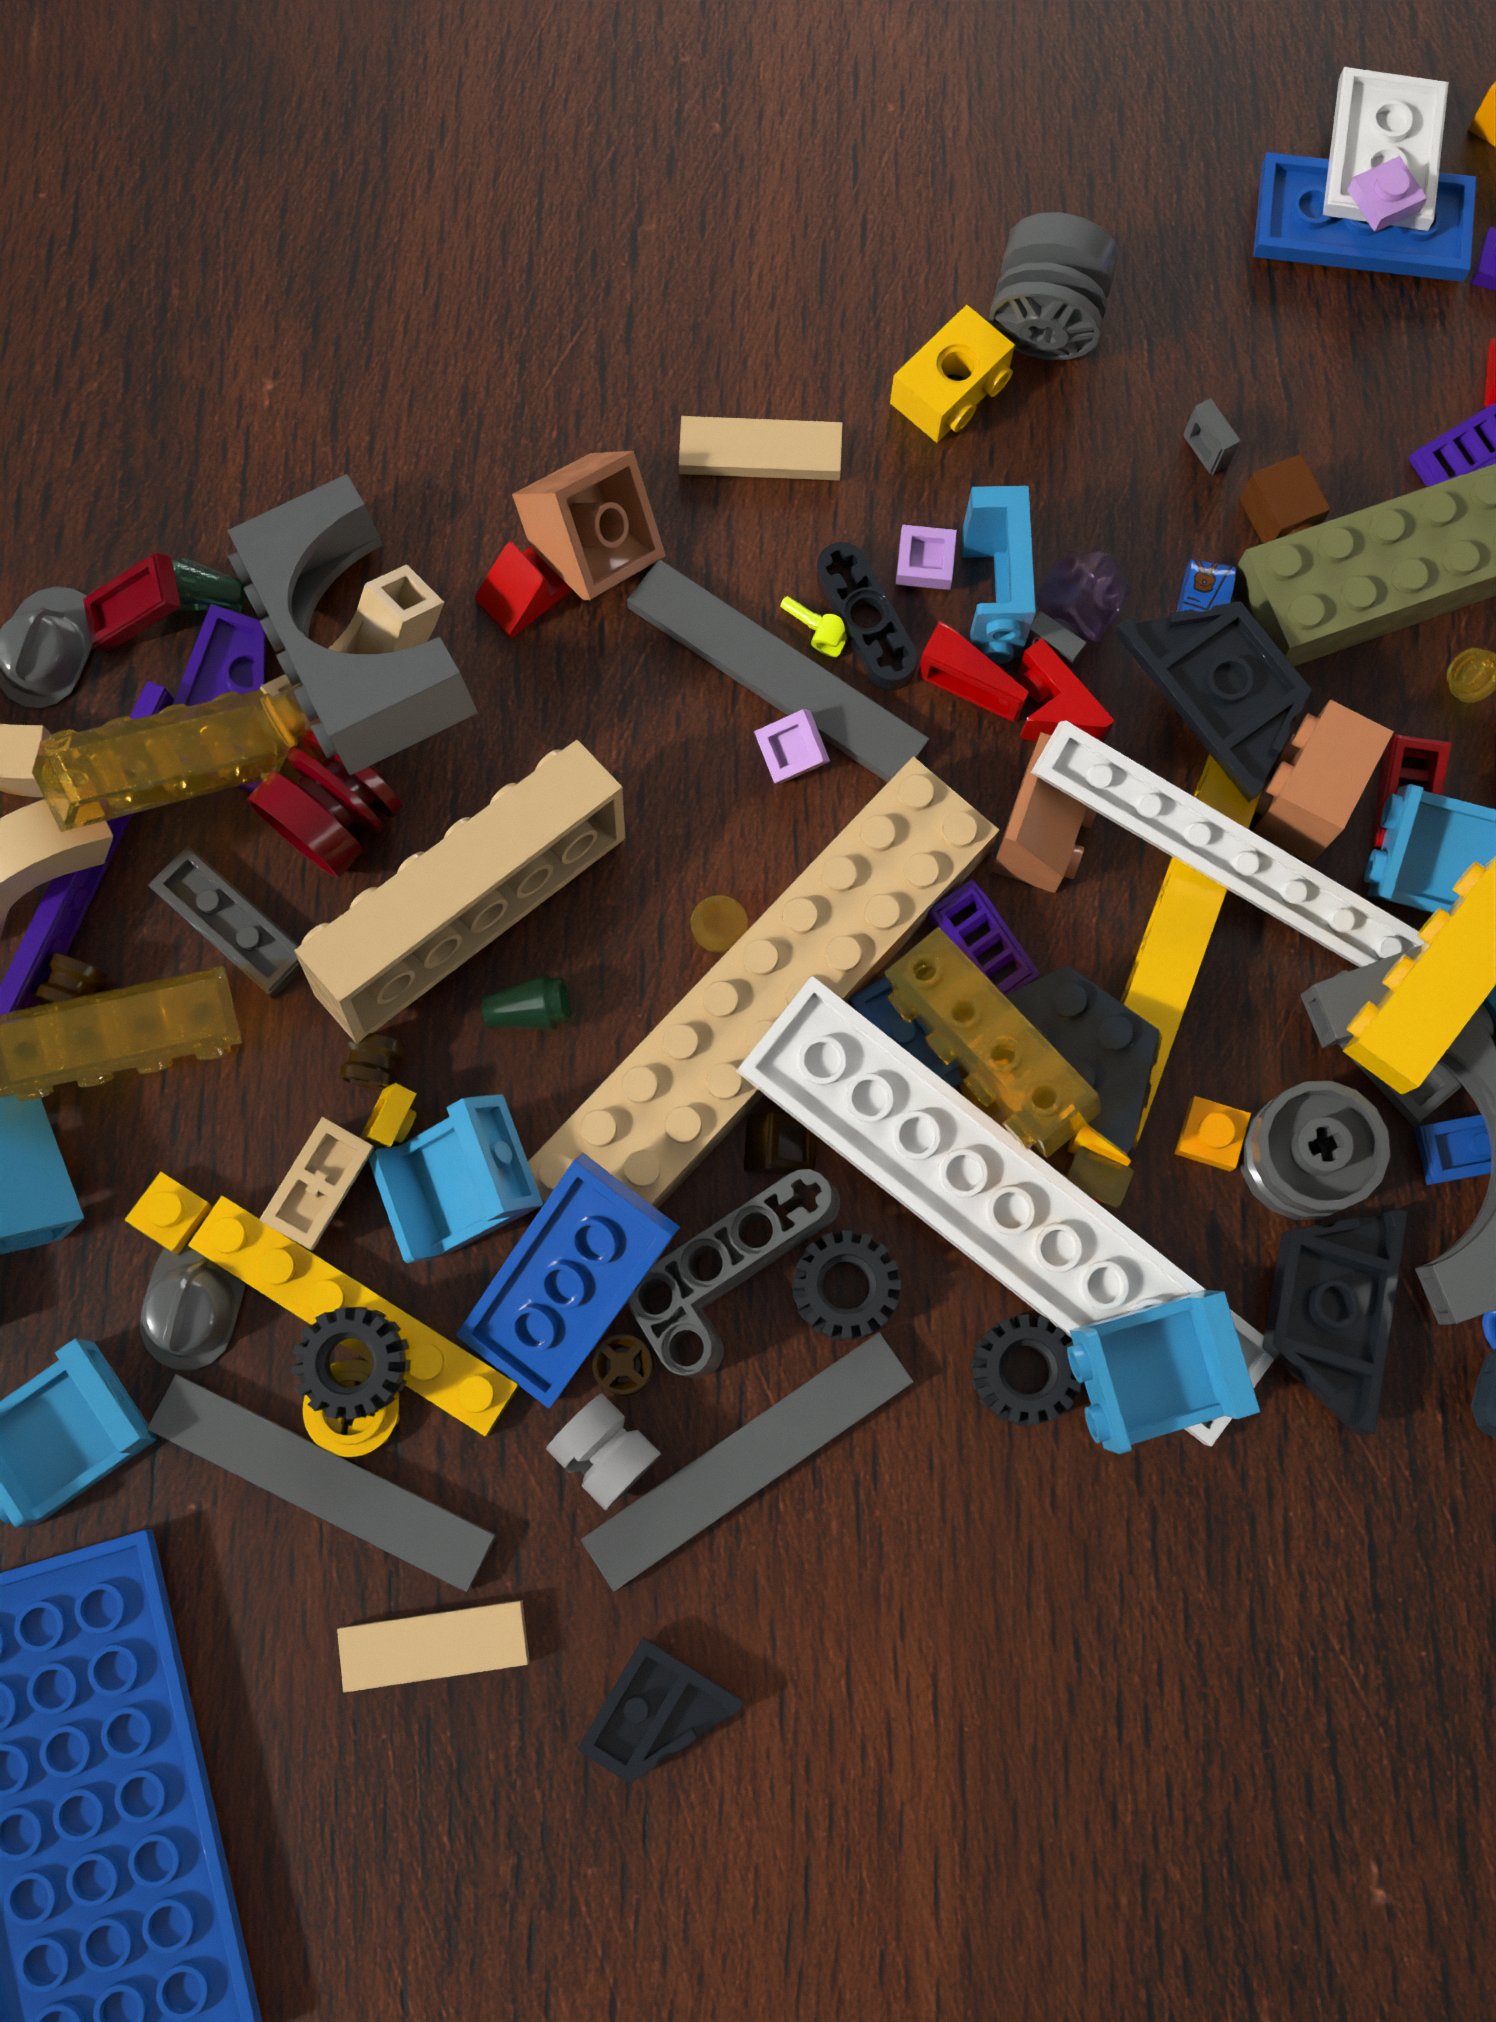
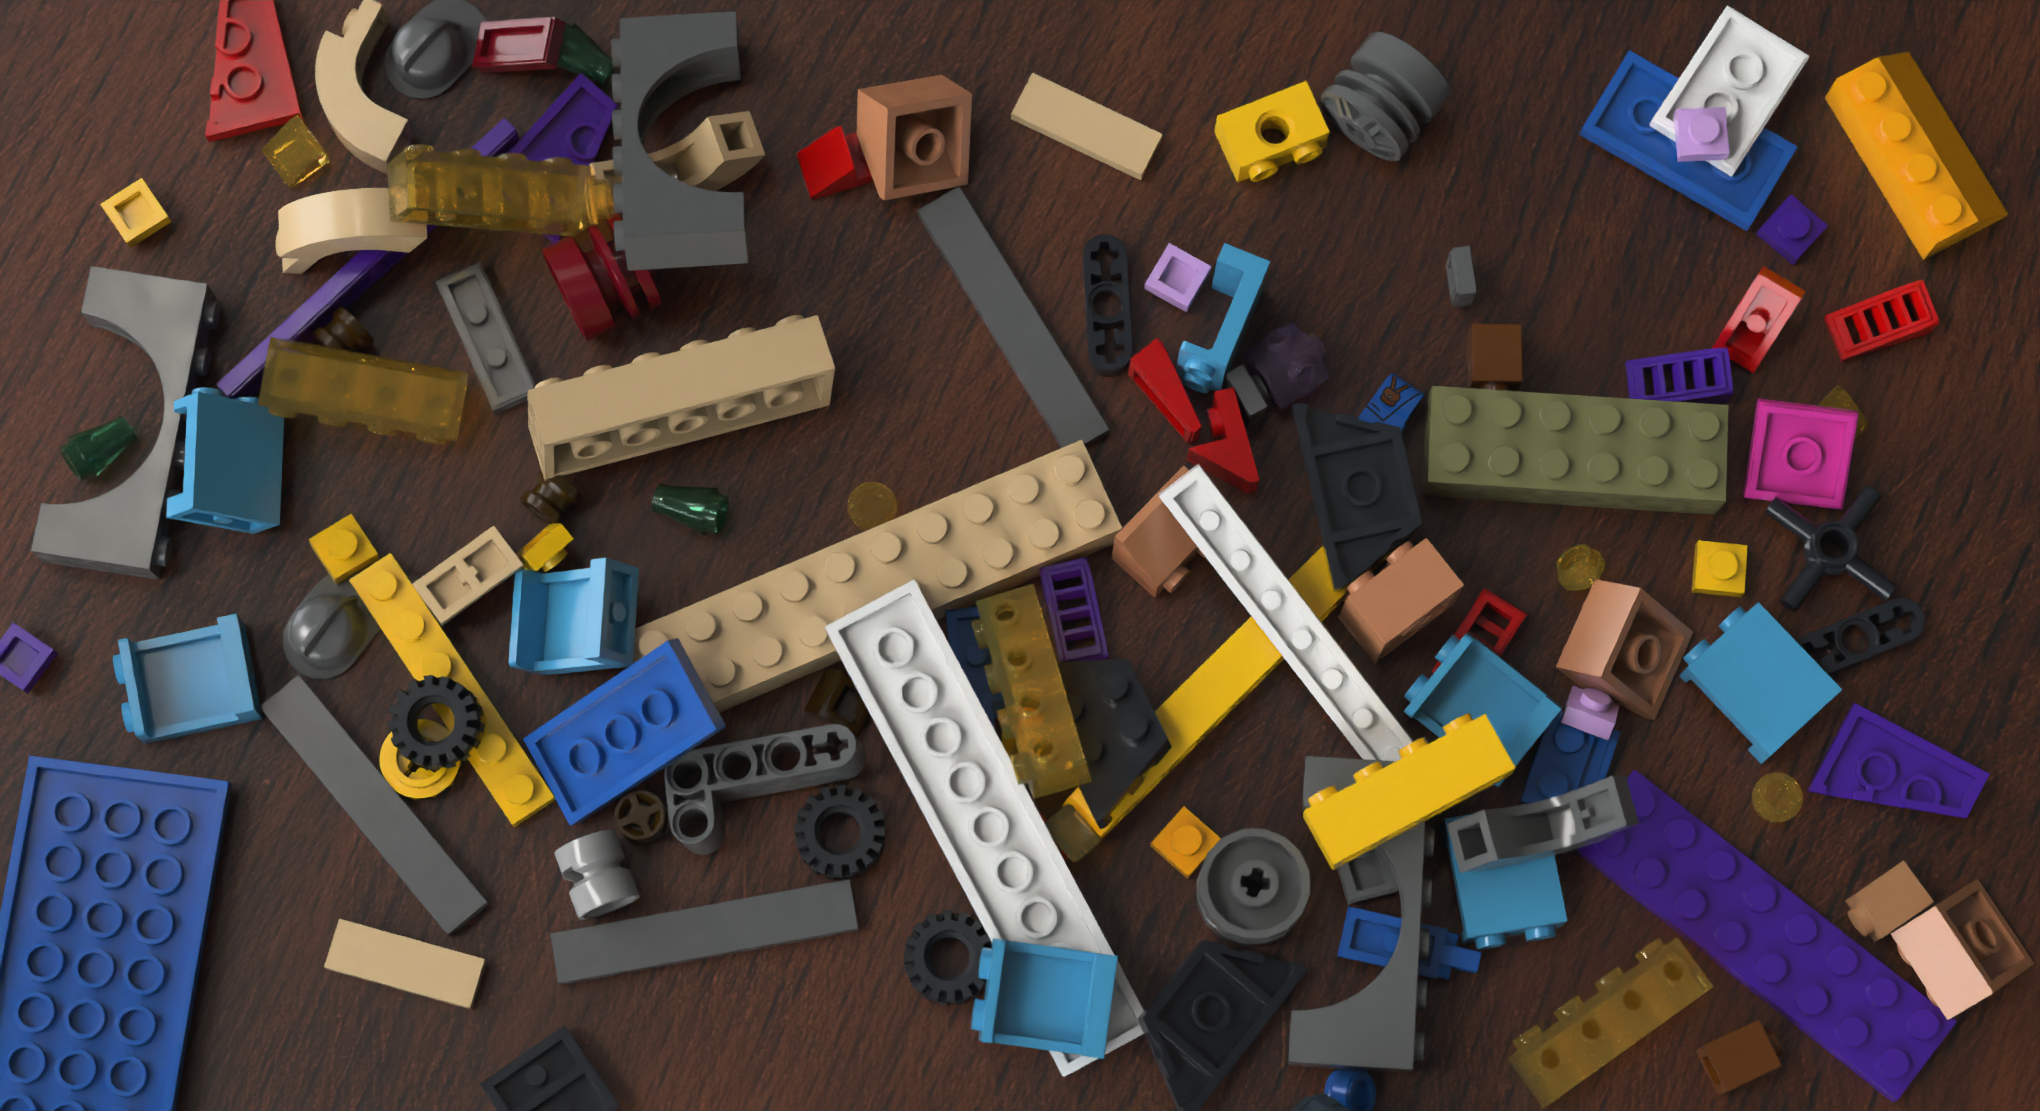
camera: 20 degrees right, 0 degrees up
(792, 746) = (995, 388): lavender plate -> none
(830, 629) = (1070, 307): neon yellow hand -> none

